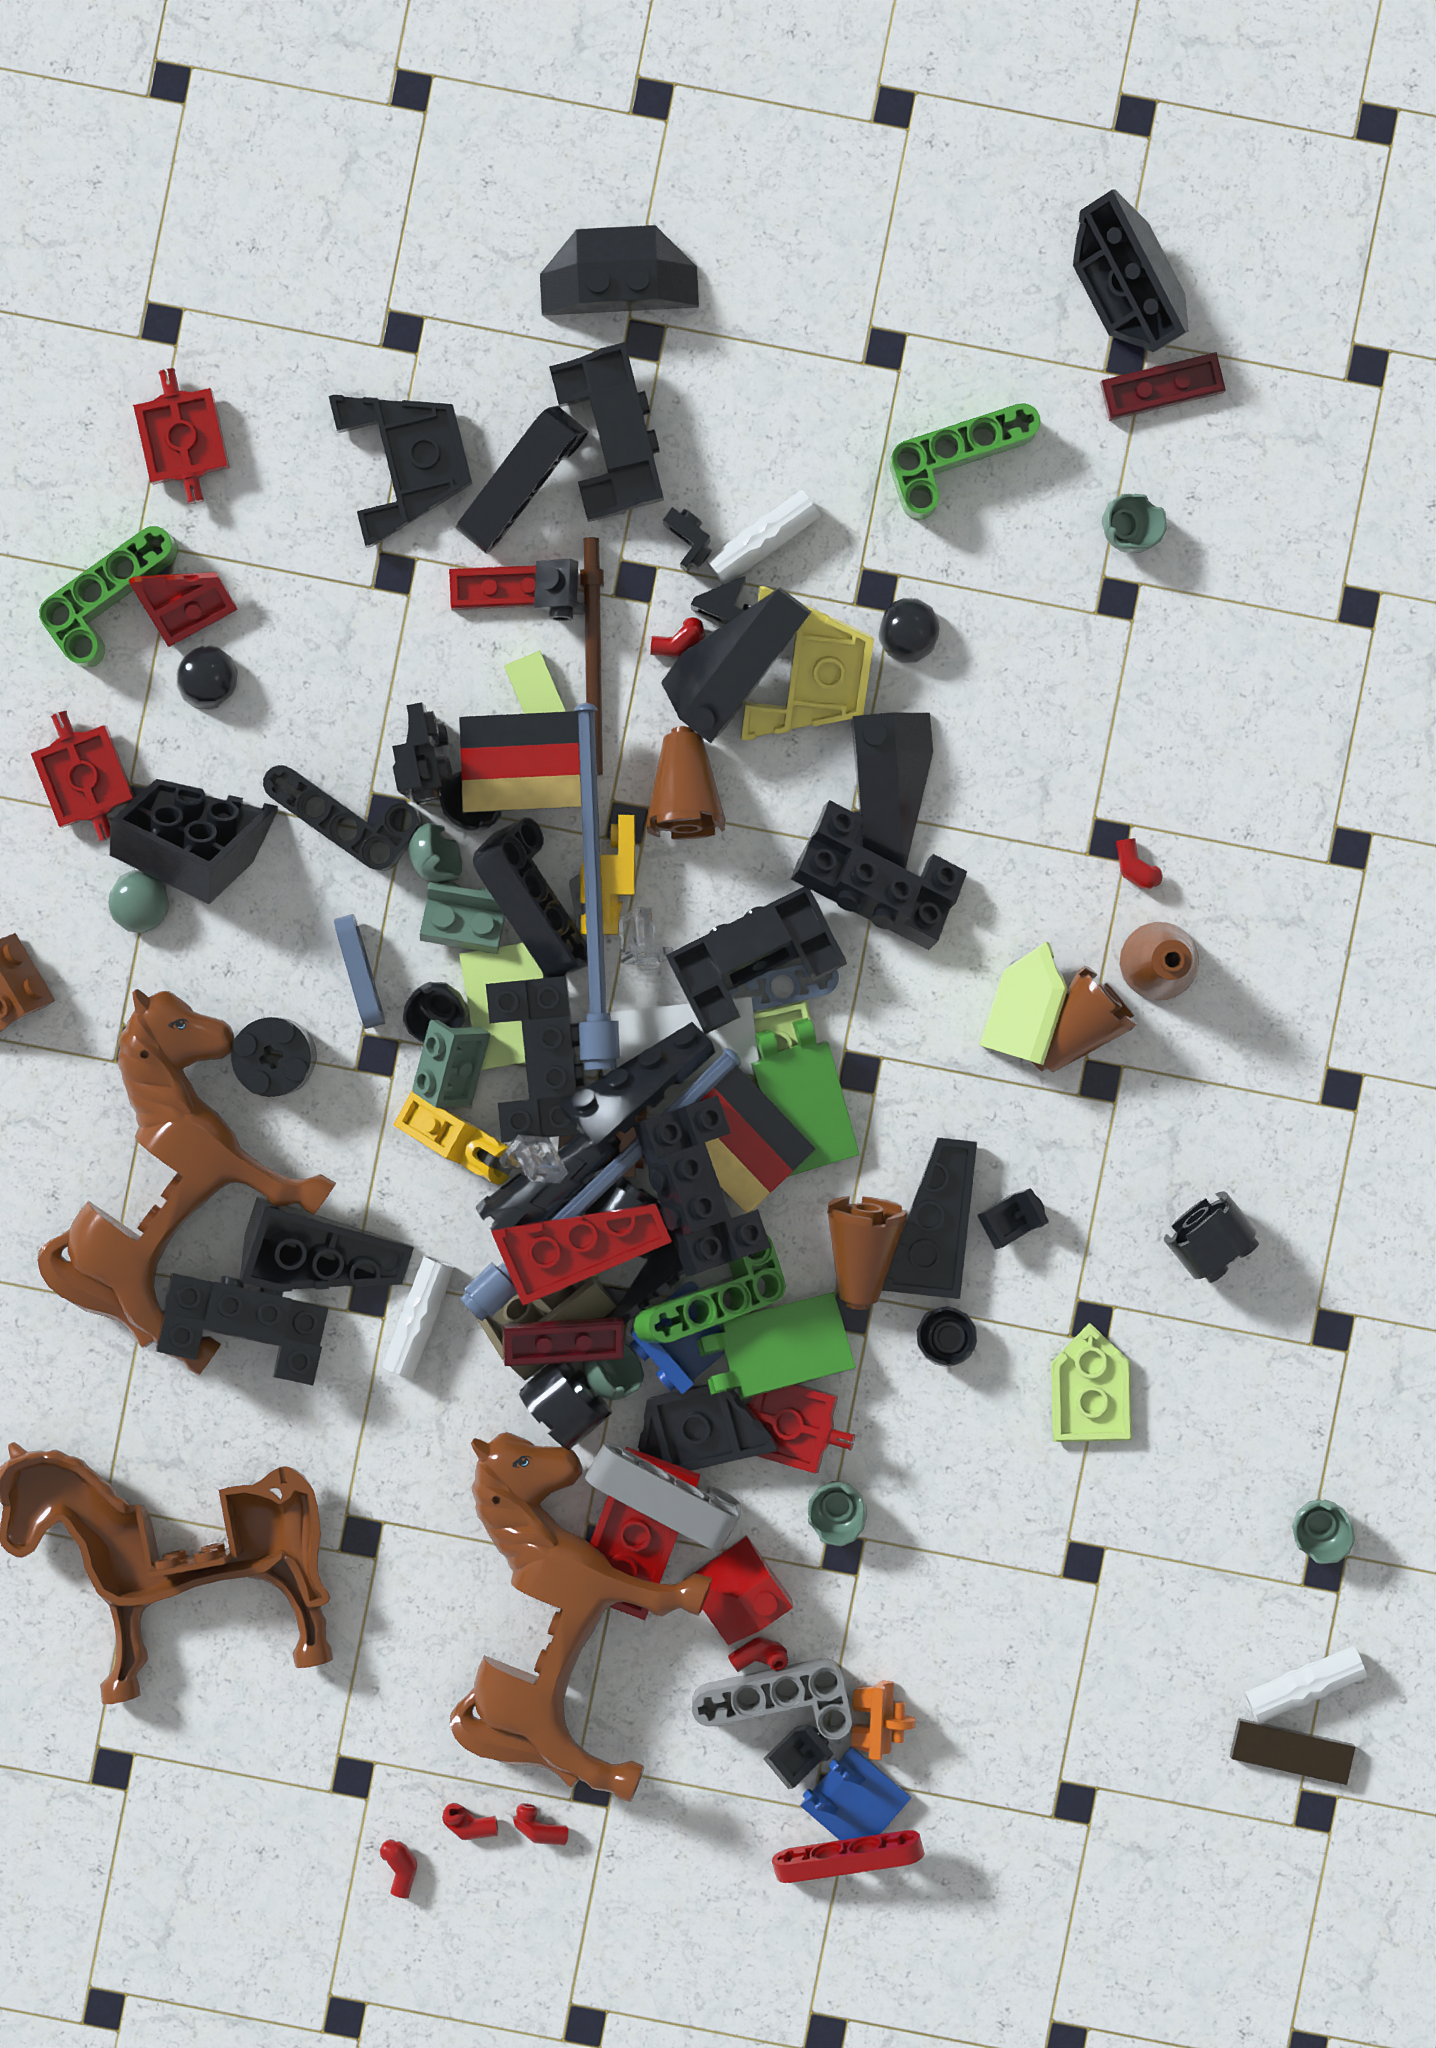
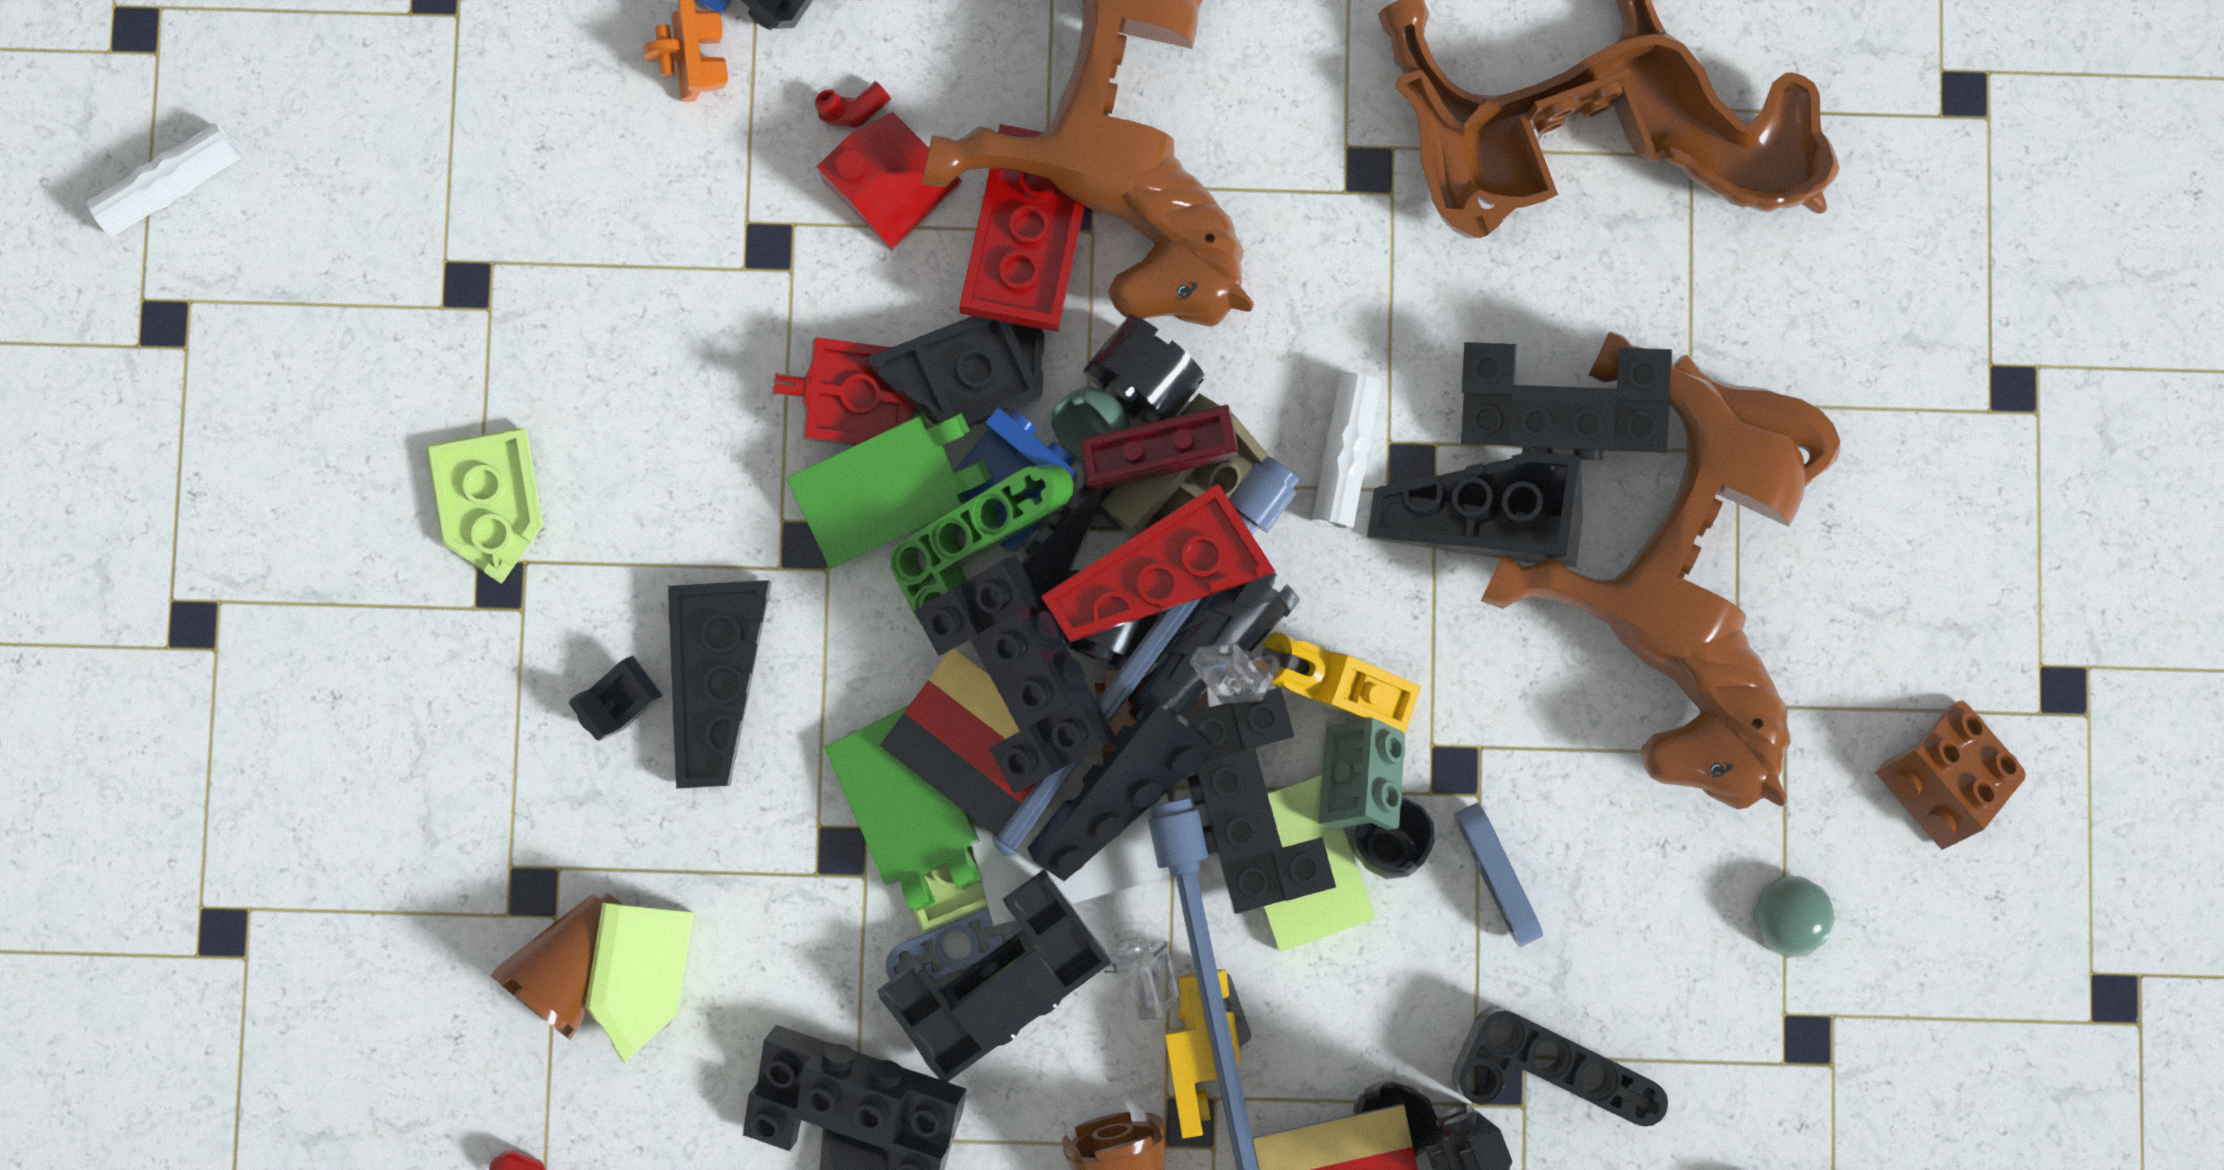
camera: 165 degrees right, 5 degrees down
(82, 776) = (1896, 1066): red plate -> none
(189, 837) = (1747, 1011): black wedge -> none
(254, 1045) = (1615, 758): black brick -> none
(433, 856) = (1429, 1038): sand green hair -> none
(462, 918) = (1378, 967): sand green bracket -> none
(527, 900) = (1300, 1005): black beam -> none
(665, 1498) = (999, 274): light grey beam -> none
(772, 1702) = (826, 49): light grey beam -> none
(837, 1513) = (780, 293): sand green hair -> none
(863, 1246) = (799, 632): dark orange cone -> none
(946, 1336) = (677, 535): black hair -> none
(1145, 966) = (477, 1060): dark orange cone -> none
(1212, 1237) = (356, 716): black brick -> none
(1292, 1751) = (171, 96): dark brown tile -> none
(1323, 1531) = (165, 370): sand green hair -> none

